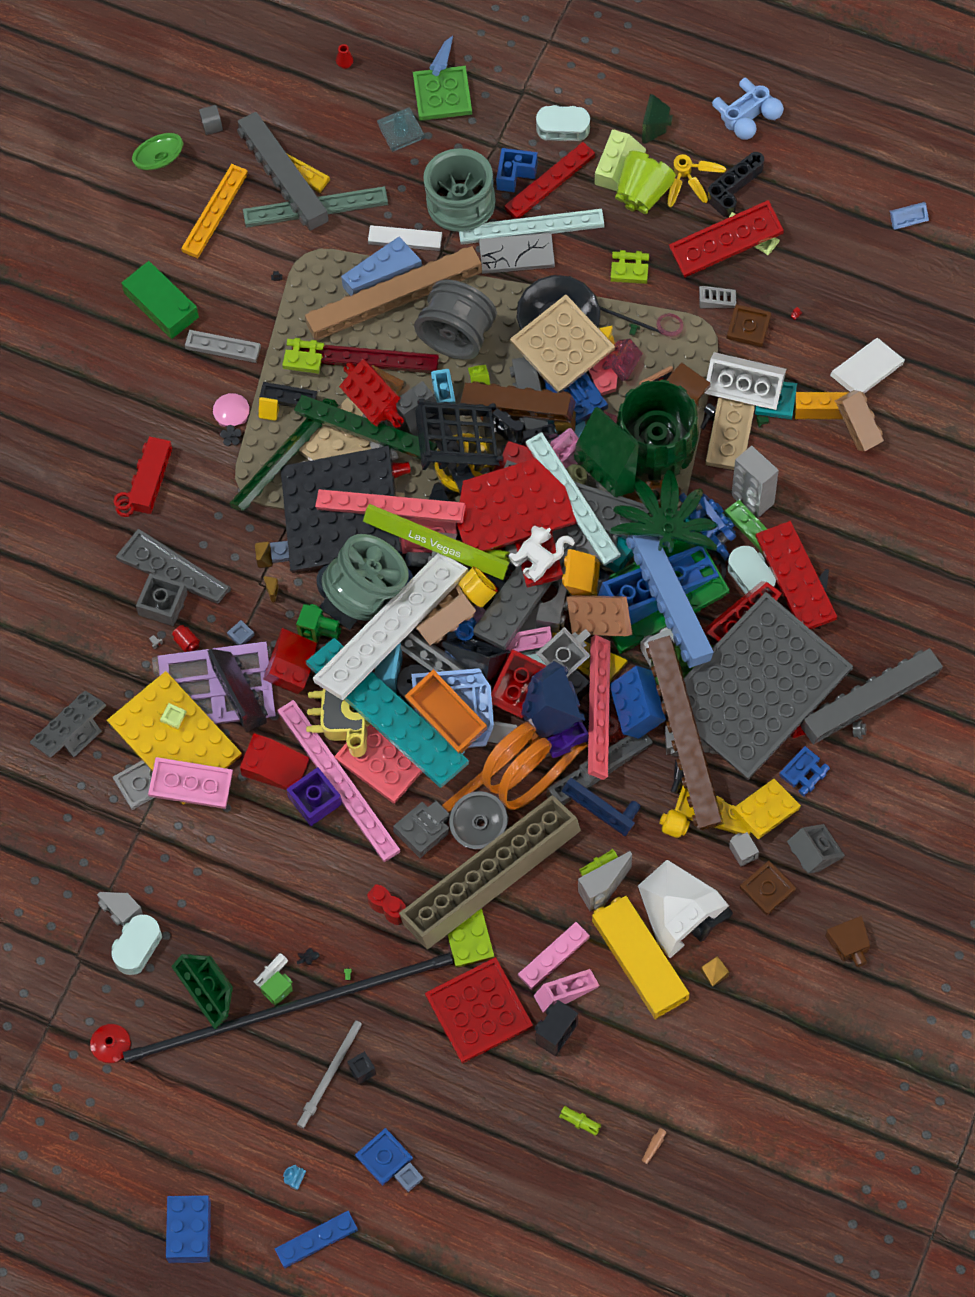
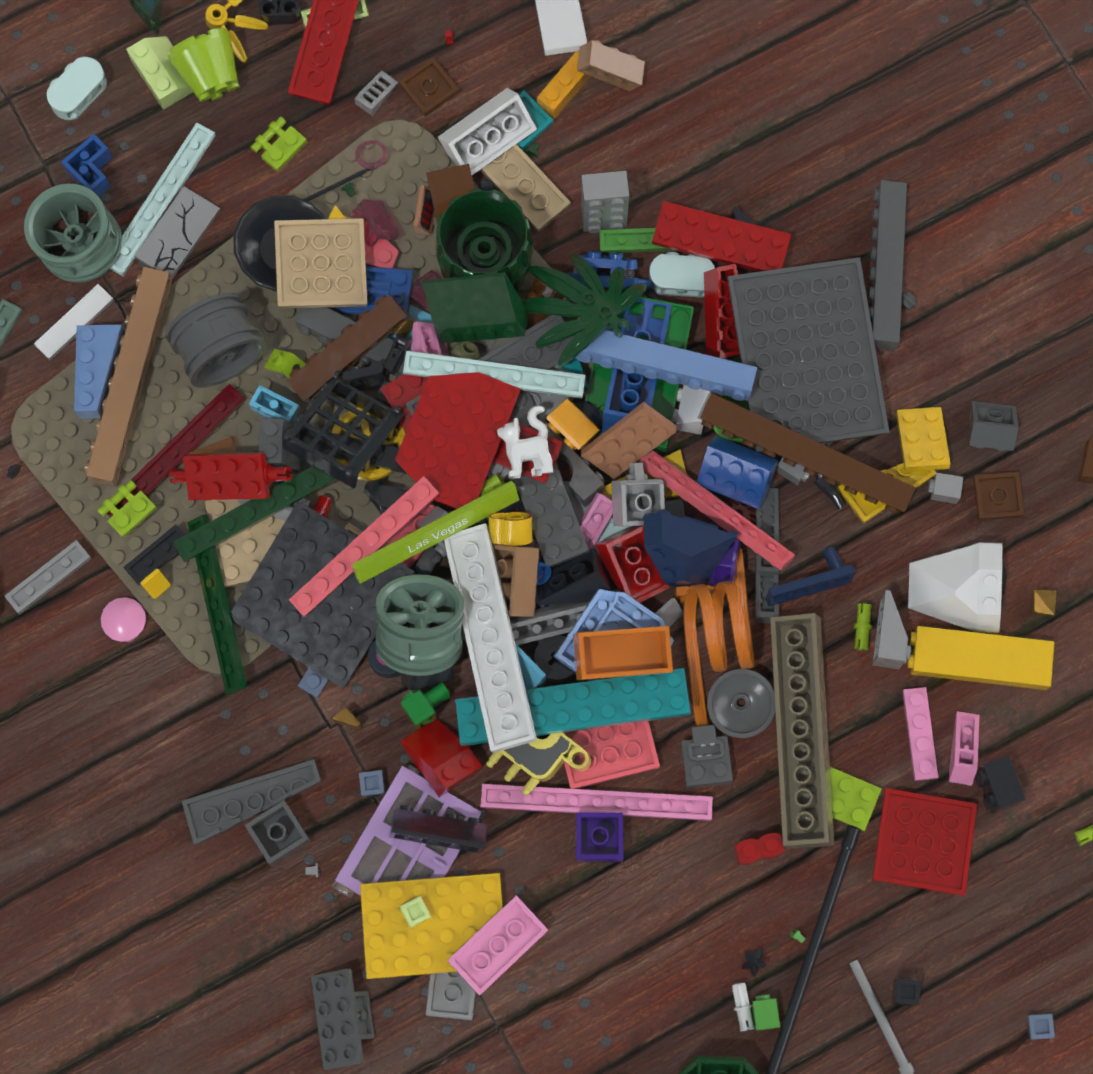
camera: 55 degrees left, 10 degrees up
(148, 478) = (134, 752): red hinge -> none
(185, 639) = (336, 840): red brick -> none
(231, 435) = (150, 639): black plant -> none
(263, 554) = (305, 702): pearl gold slope -> none
(273, 763) = (533, 850): red slope -> none
(383, 1156) = (1004, 1035): blue plate -> none
(549, 181) = (126, 146): red plate -> none
(674, 823) = (875, 530): yellow head -> none
(799, 767) = (903, 379): blue plate -> none

